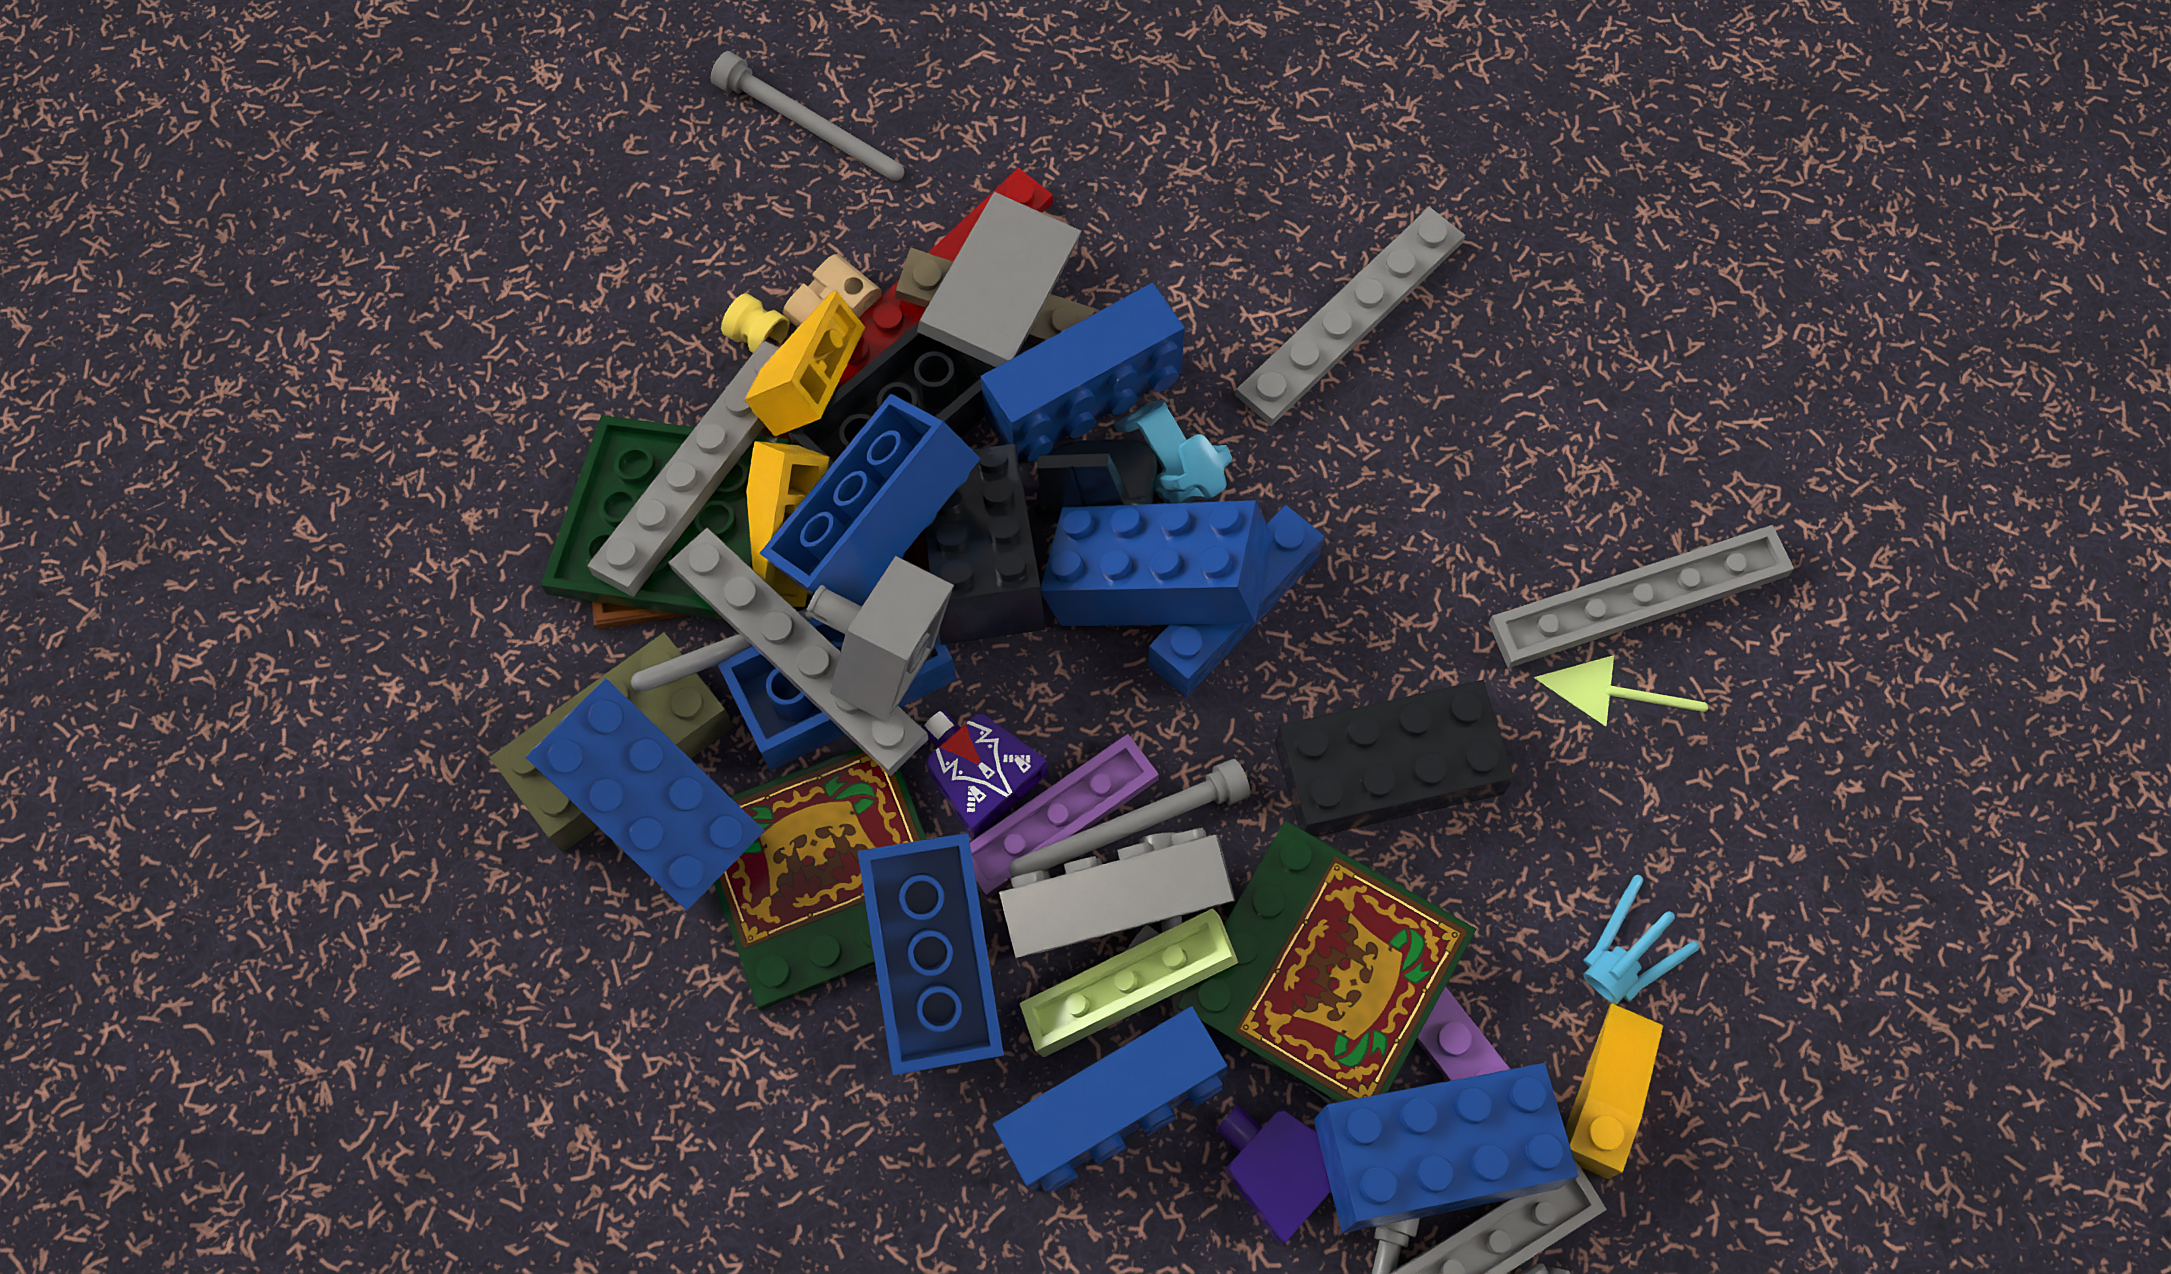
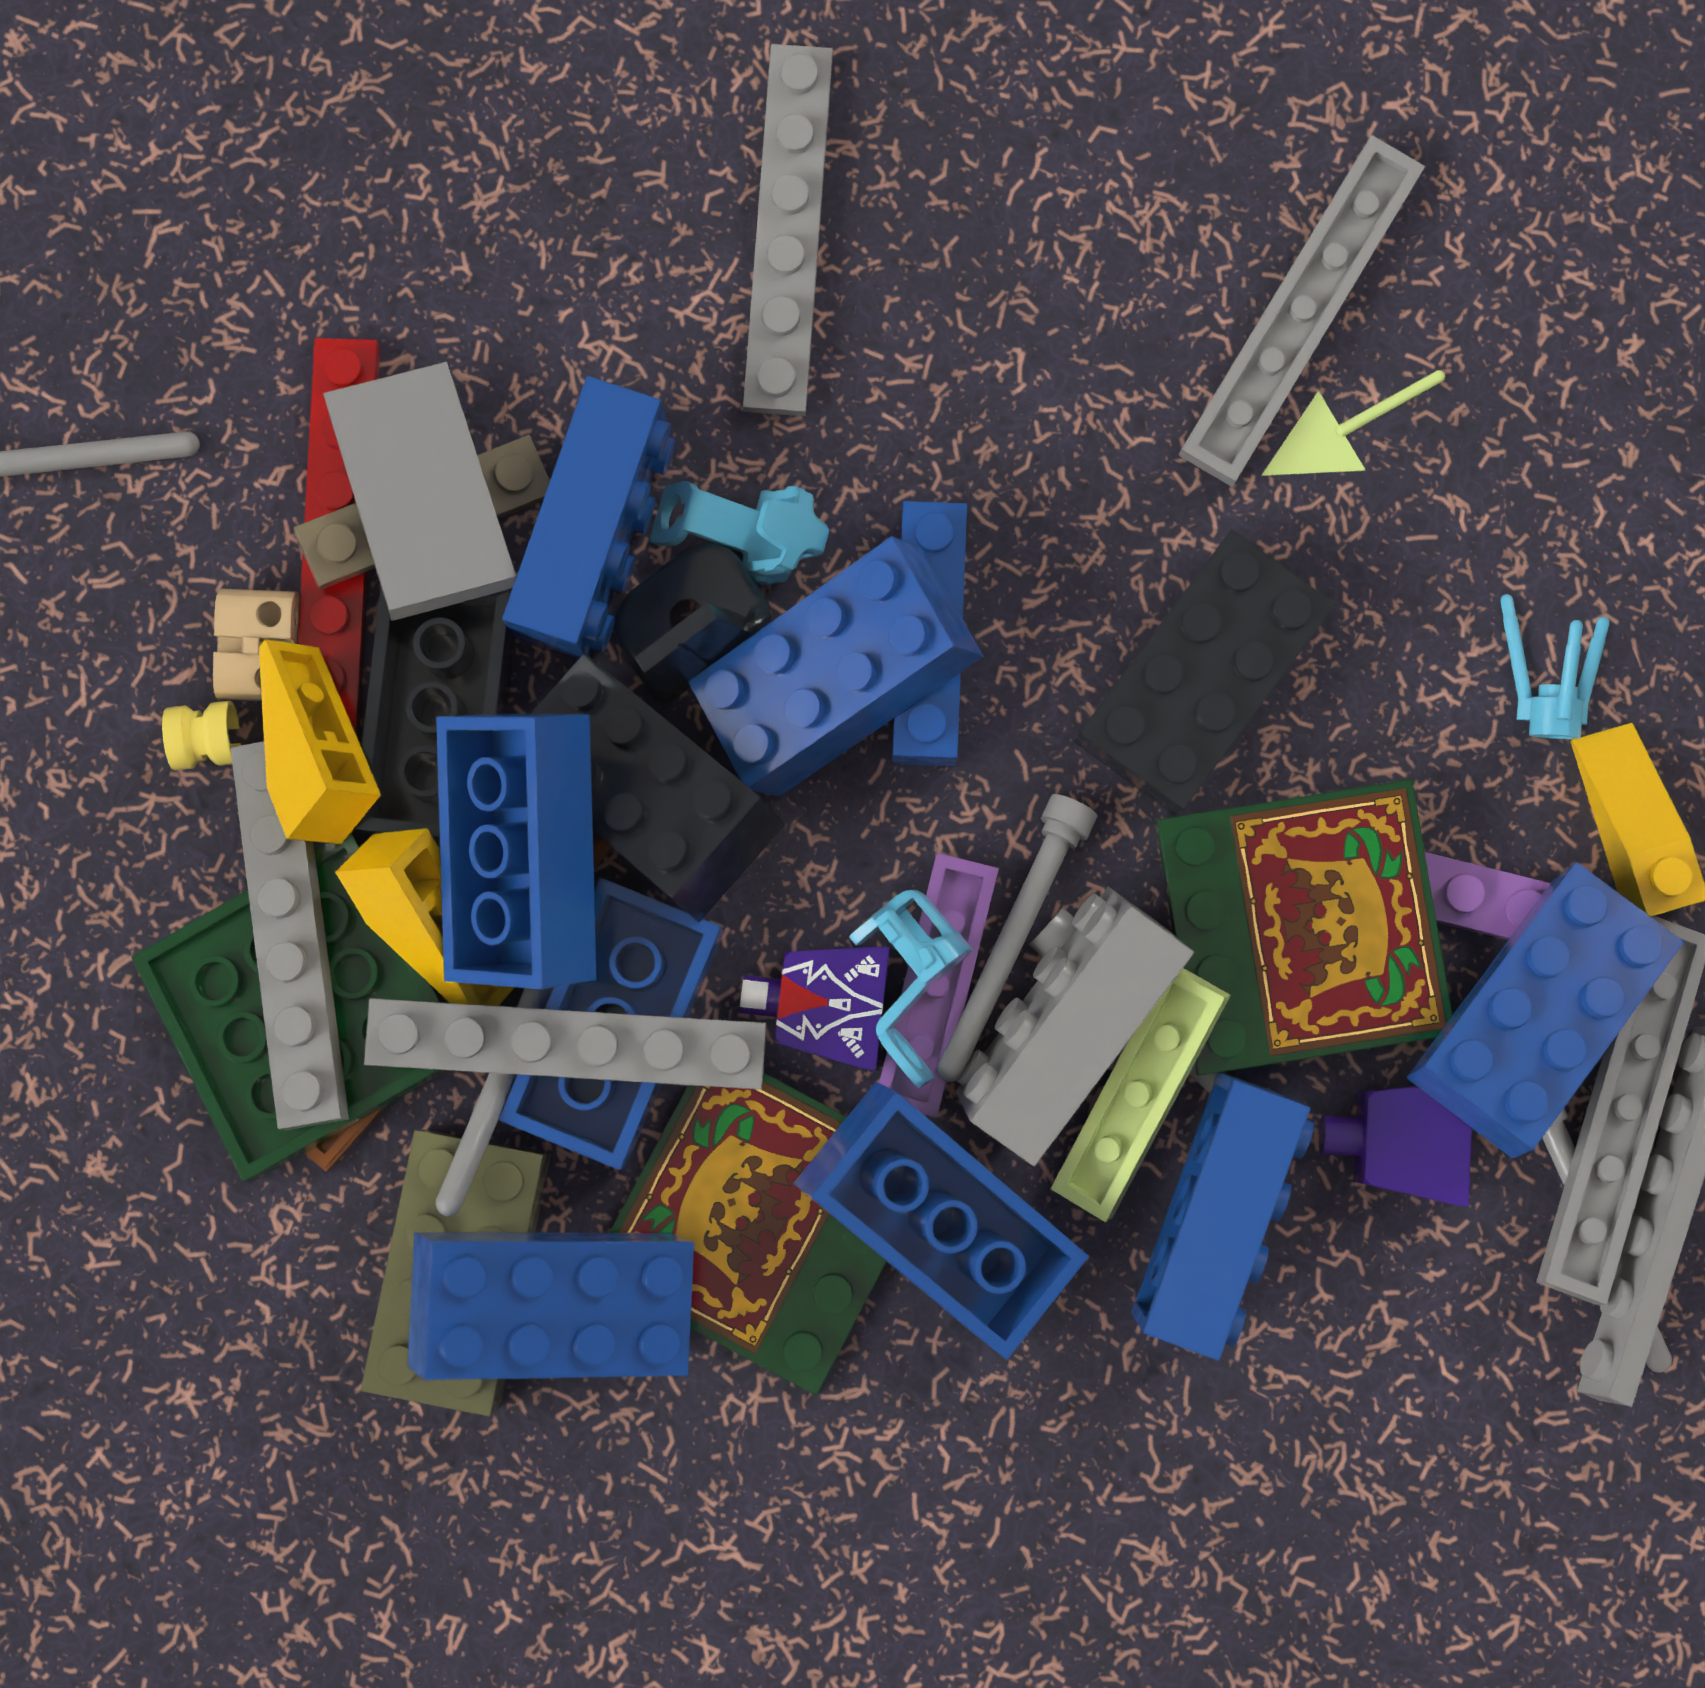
camera: 40 degrees left, 15 degrees up
(885, 636) = (657, 972): light grey brick -> none
(1065, 784) = (927, 958): none -> medium azure piece

